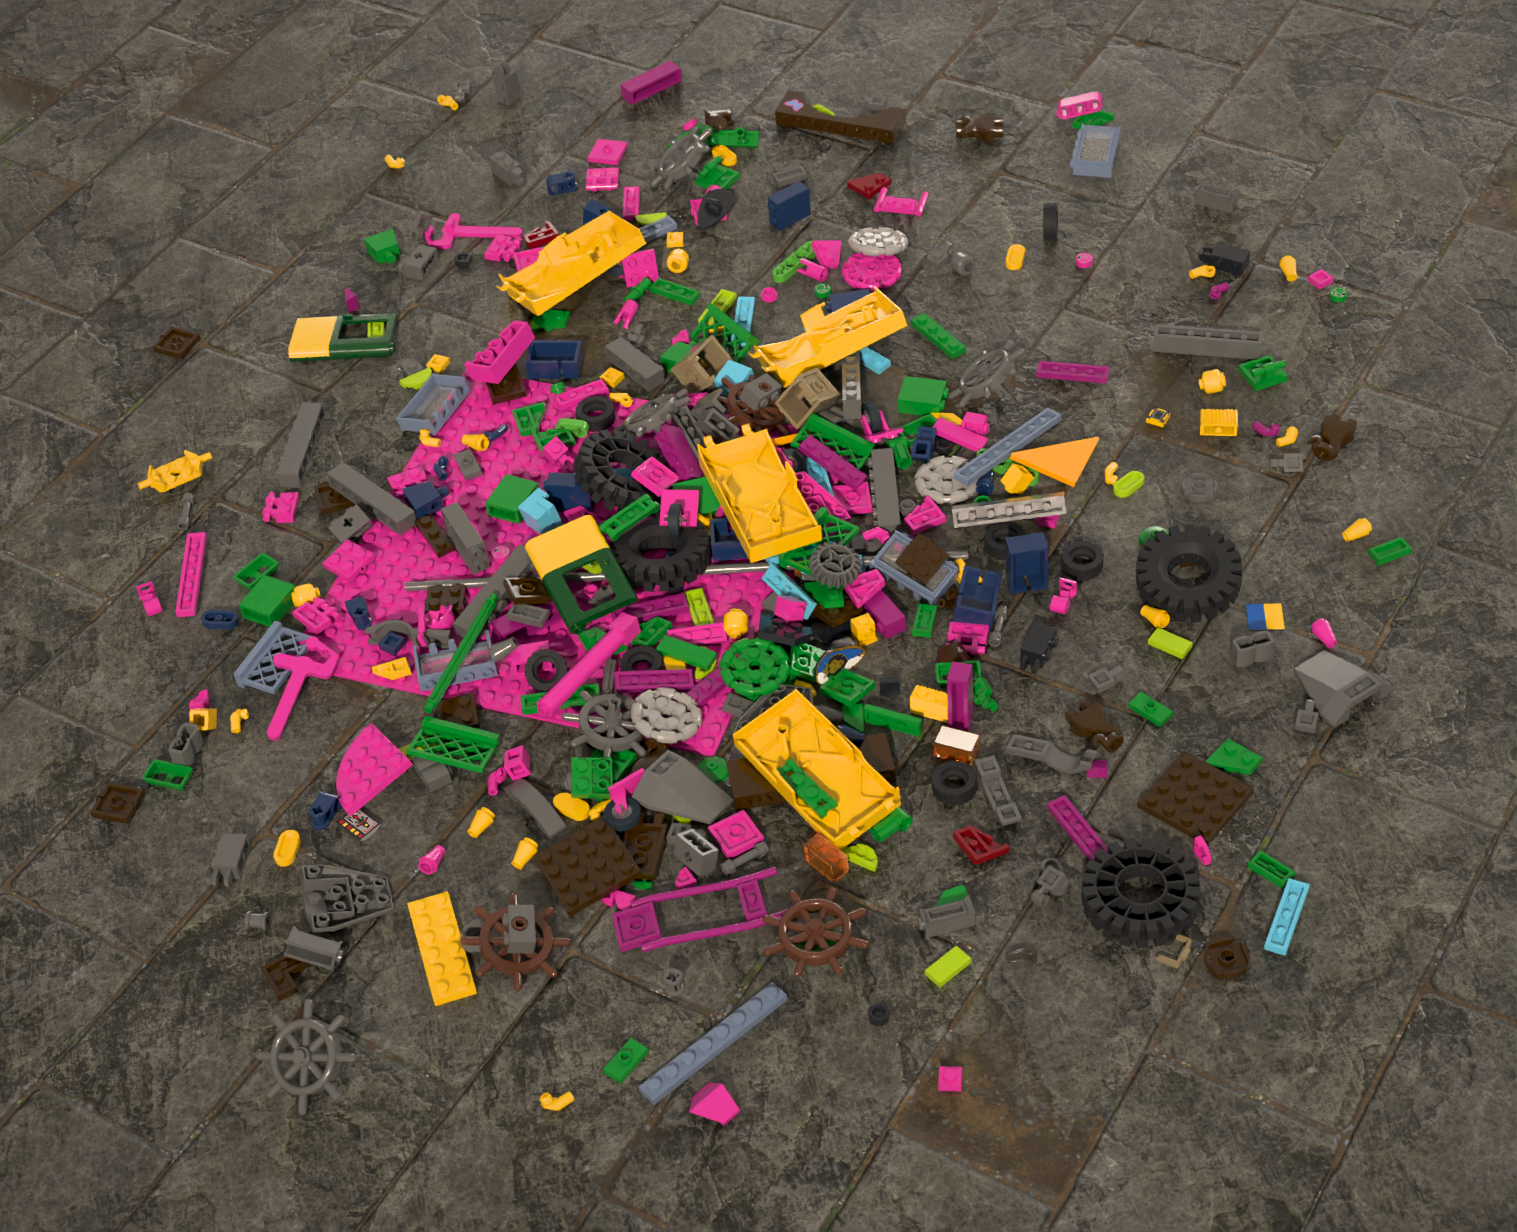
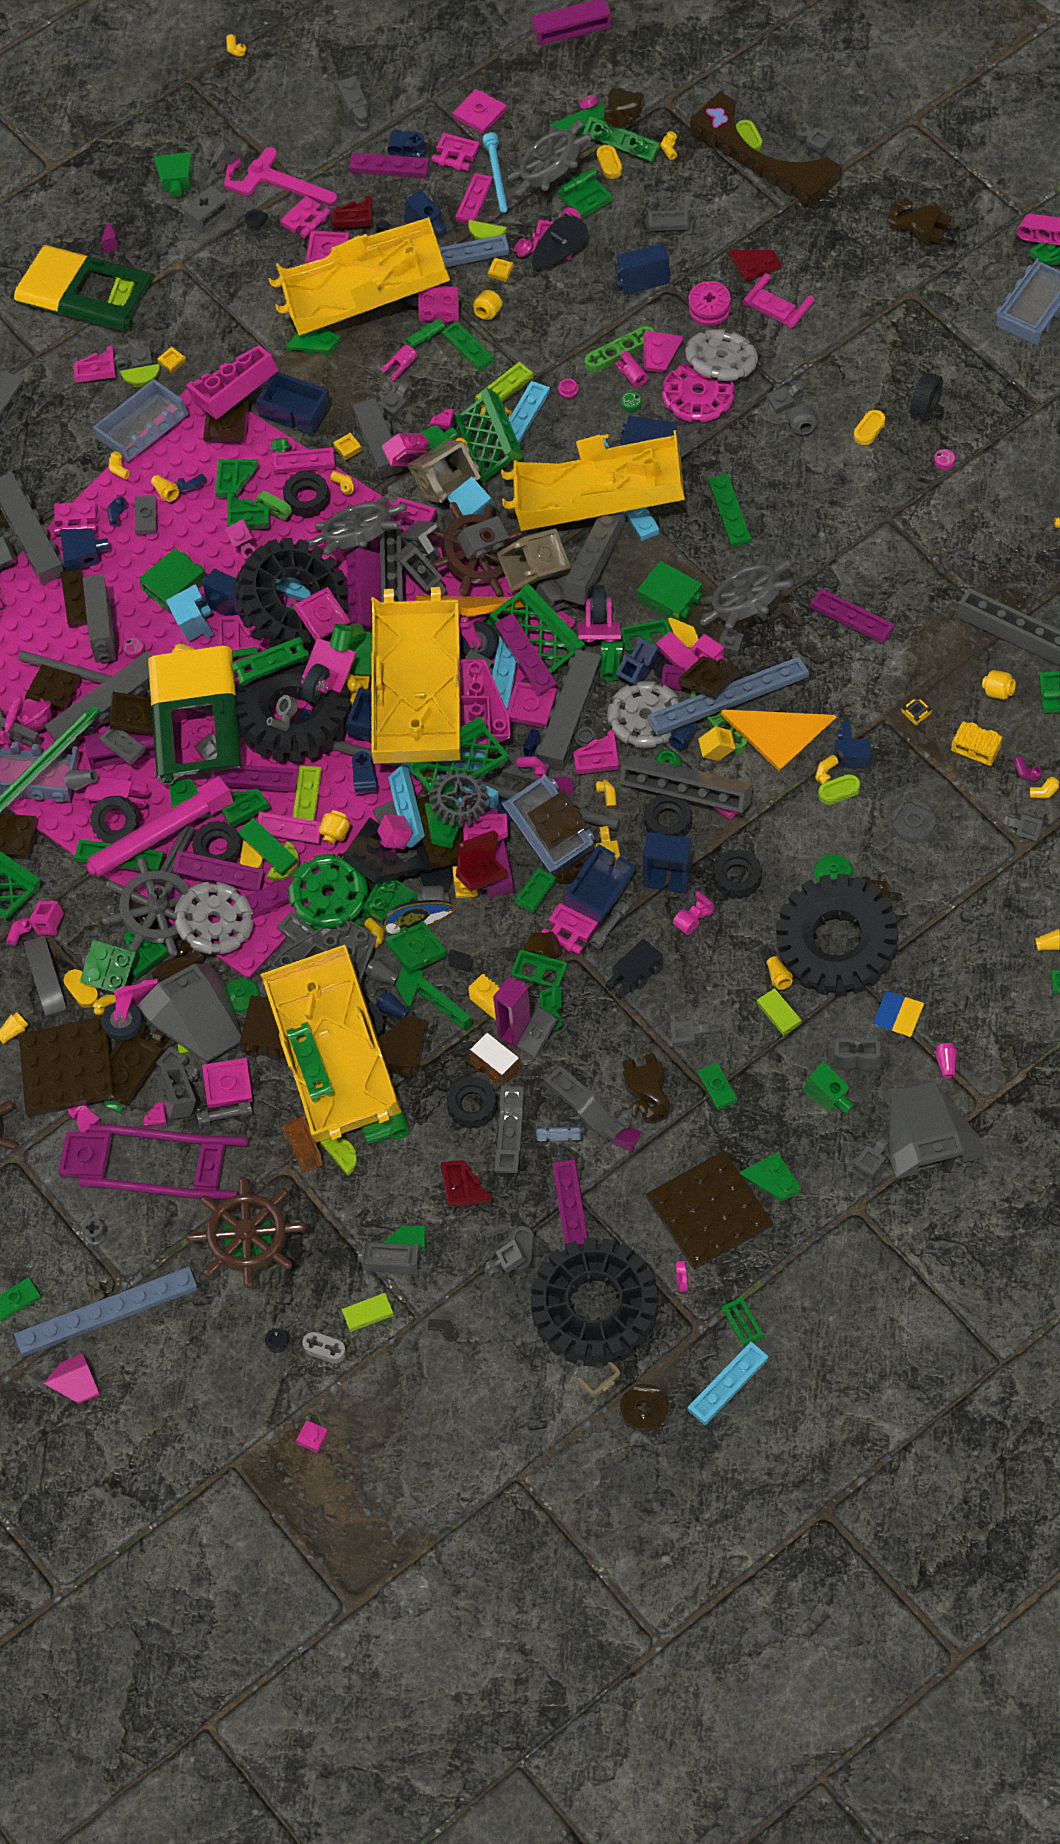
camera: 20 degrees right, 15 degrees up
(377, 384) = (95, 366): none -> dark pink wing
(553, 201) = (389, 165): none -> magenta plate
(627, 167) = (491, 143): none -> medium azure piece
(658, 546) = (286, 708): none -> dark grey plate
(664, 356) = (405, 448): none -> dark pink window
(685, 480) = (346, 635): none -> green piece
(686, 220) = (523, 247): none -> dark pink plate
(741, 581) = (363, 775): none -> dark blue piece
(764, 134) = (667, 145): none -> yellow arm
(850, 215) = (709, 303): none -> dark pink wheel
(867, 522) = (531, 743): none -> clear blue tile
(871, 607) = (477, 861): none -> dark red bracket
(924, 1005) = (322, 1352): none -> light grey beam
(946, 536) = (609, 791): none -> yellow arm
(956, 447) = (670, 676): none -> magenta tile
(982, 714) = (537, 1032): none -> dark grey plate
(985, 436) = (708, 676): none -> dark brown plate
(1039, 783) = (558, 1133): none -> sand blue axle
(1126, 455) = (849, 751): none -> dark blue brick
(1244, 679) = (828, 1089): none -> green torso

